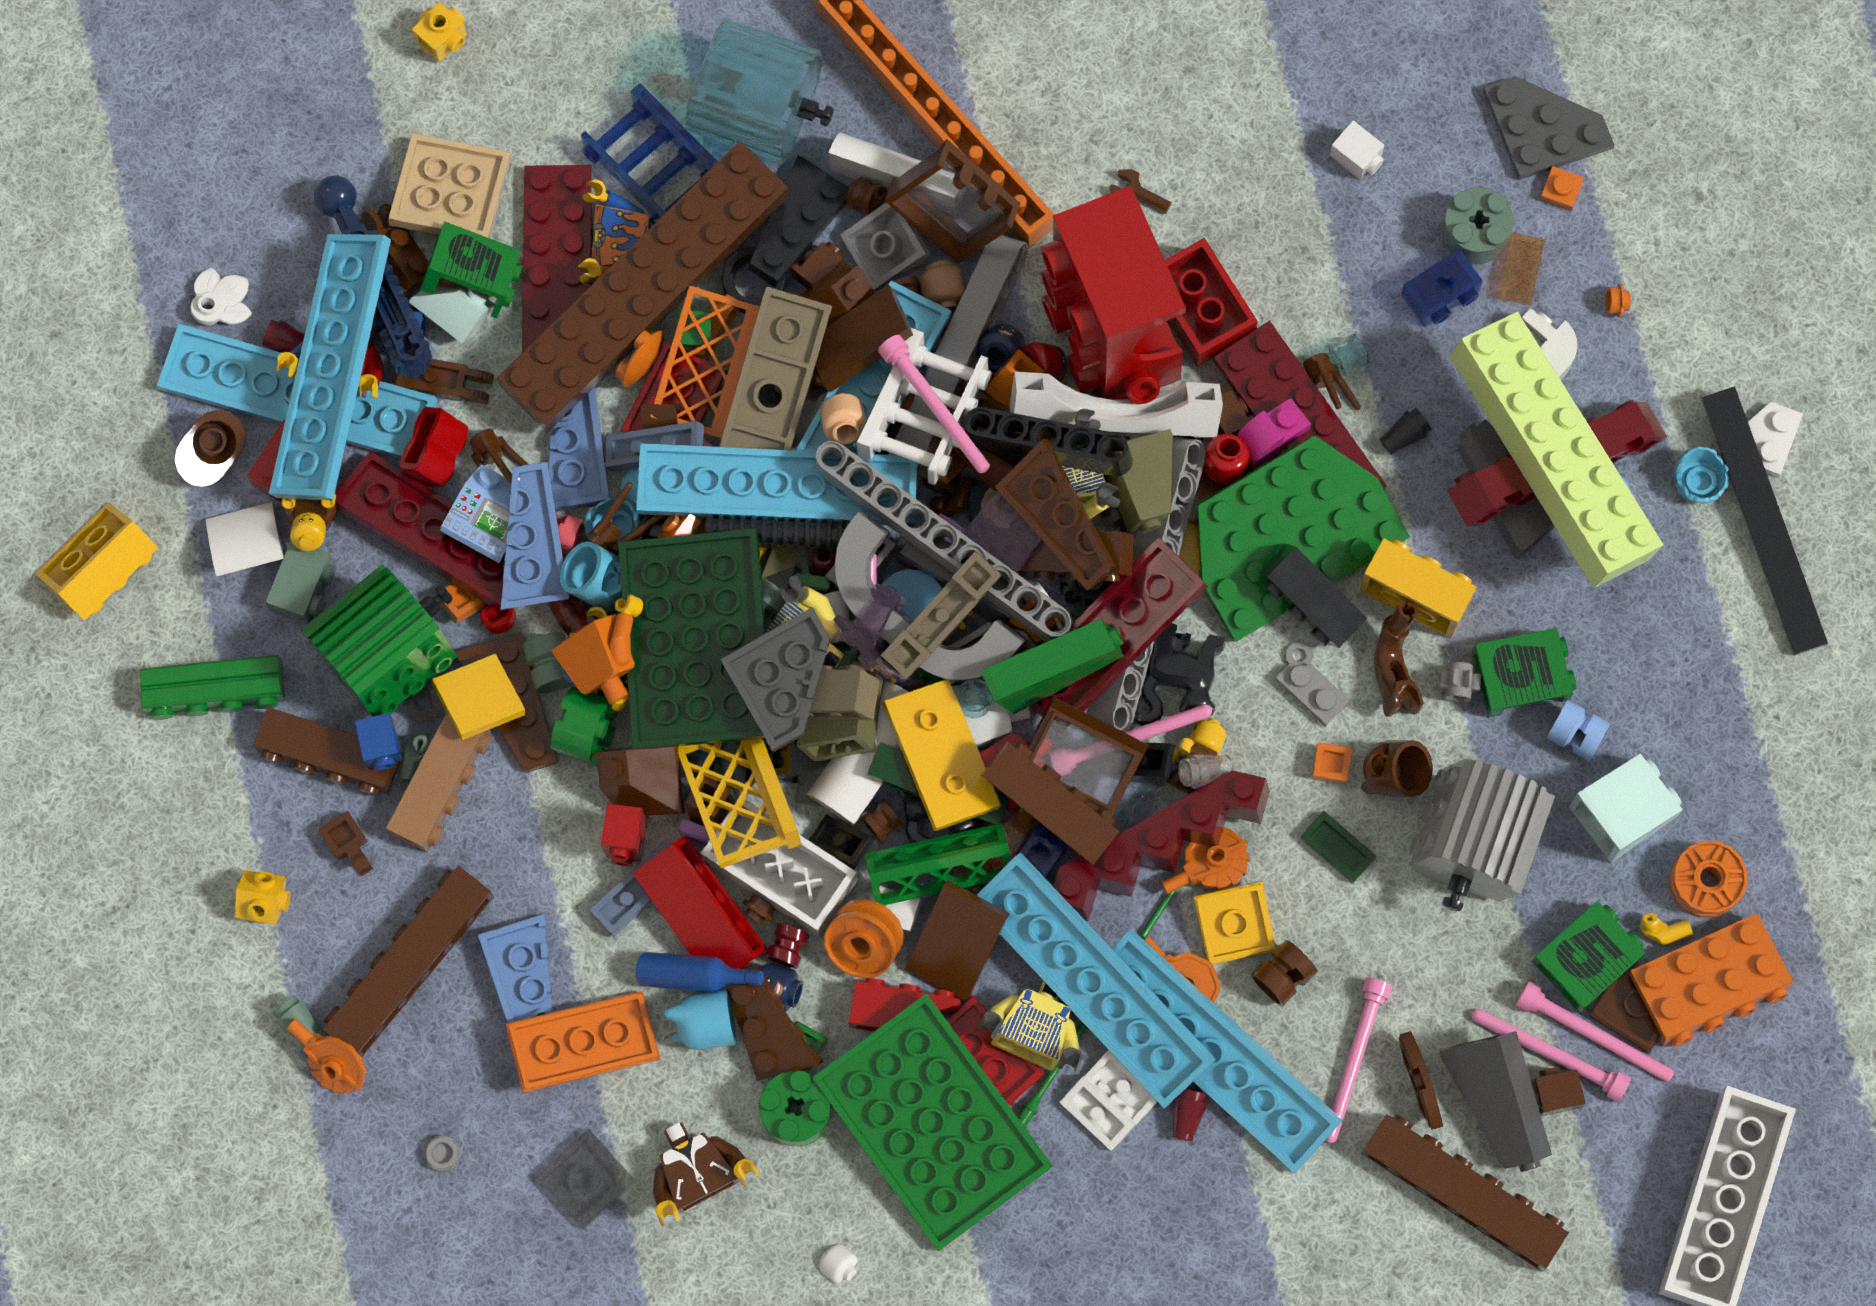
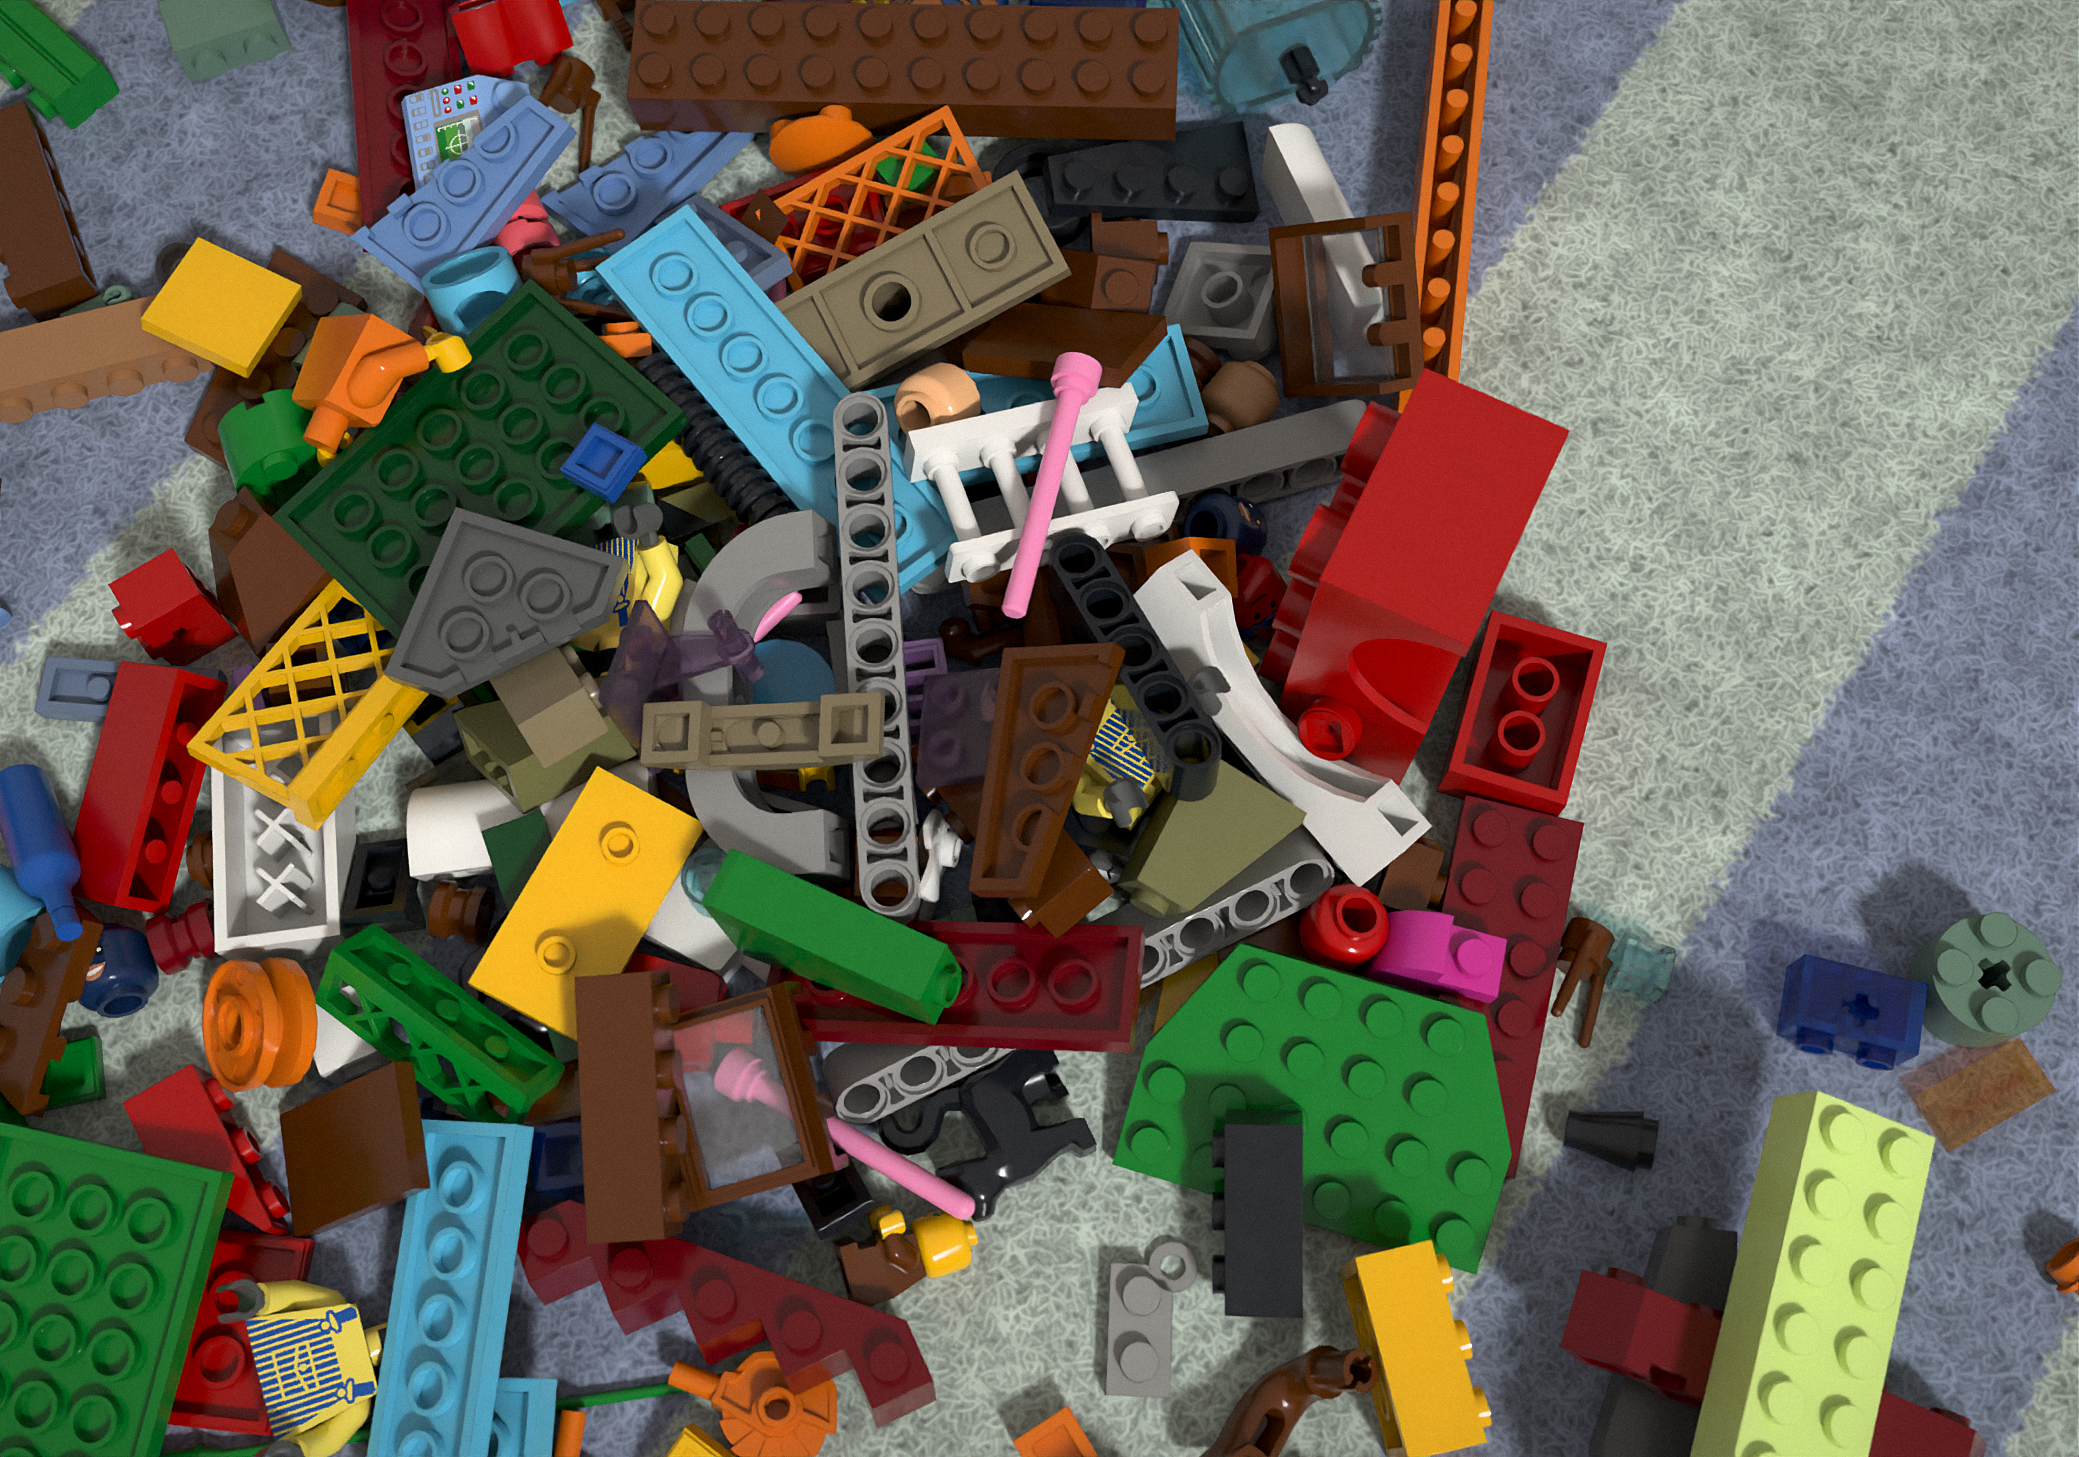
camera: 45 degrees right, 5 degrees down
(378, 741) = (59, 239): blue brick -> none
(382, 641) = (185, 141): green piece -> none
(497, 622) = (357, 265): red tile -> none
(751, 581) = (603, 463): none -> blue tile
(866, 196) = (1262, 213): reddish brown wheel -> none
(1142, 194) = (1585, 528): reddish brown bar -> none
(1203, 769) = (873, 1278): clear cone -> none
(1358, 151) = (1914, 742): white brick -> none
(1557, 345) = (1941, 1241): white brick -> none

